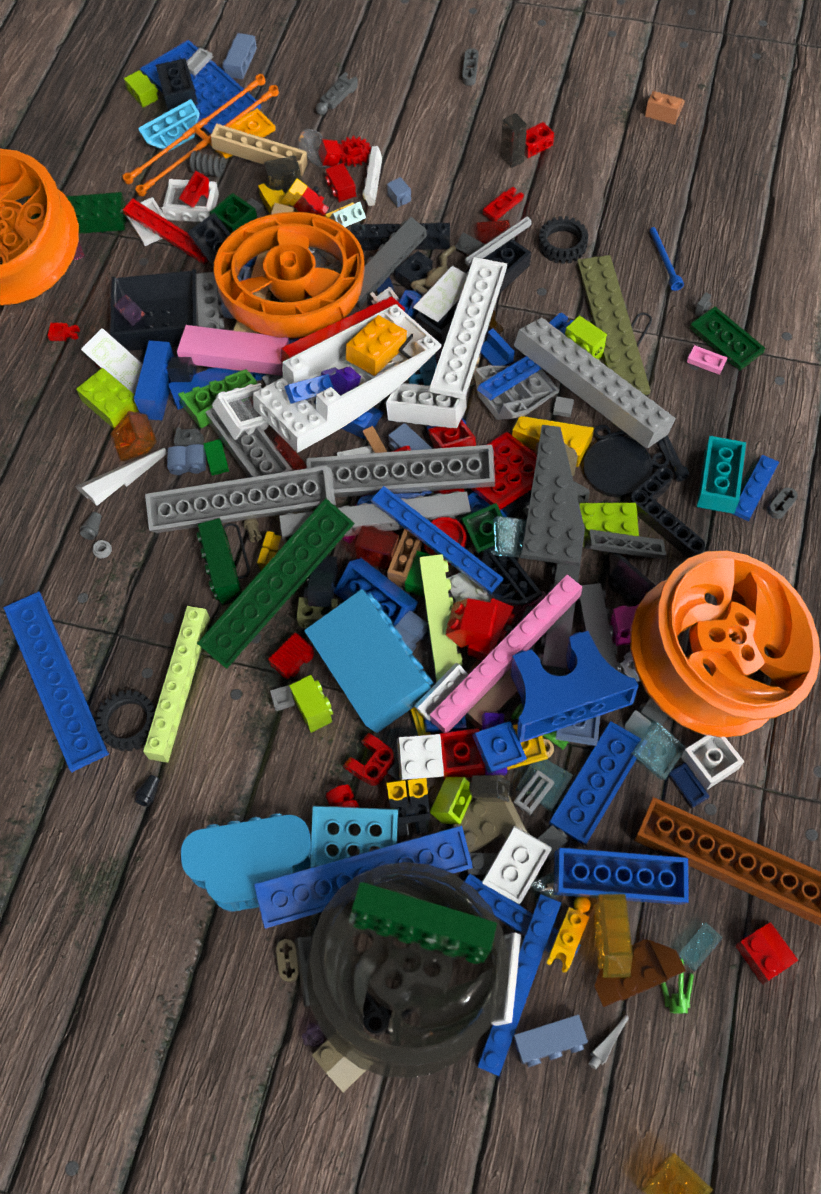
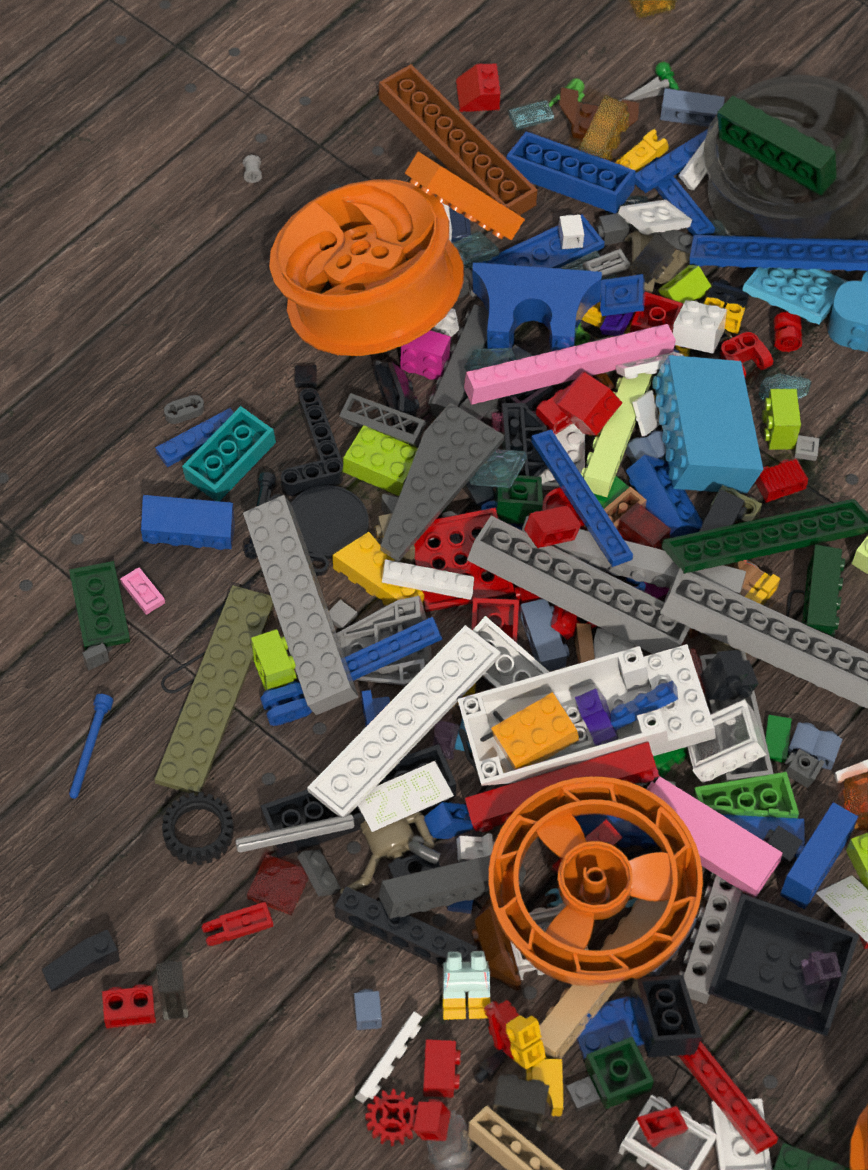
camera: 160 degrees left, 5 degrees down
(260, 444) = (728, 676): none -> black brick
(324, 742) = (783, 381): none -> clear light blue slope
(414, 269) = (417, 847): none -> dark grey arm
(426, 653) = (646, 413): none -> white piece
(443, 494) = (552, 526): none -> red brick
(516, 434) = (427, 579): none -> white plate
(575, 623) = (488, 357): none -> clear light blue slope
(576, 152) = (82, 960): none -> black slope
(583, 808) = (571, 231): none -> white brick
(604, 1081) = (664, 71): none -> green bar
(687, 742) = (463, 197): none -> orange brick
(711, 412) = (187, 522): none -> blue slope

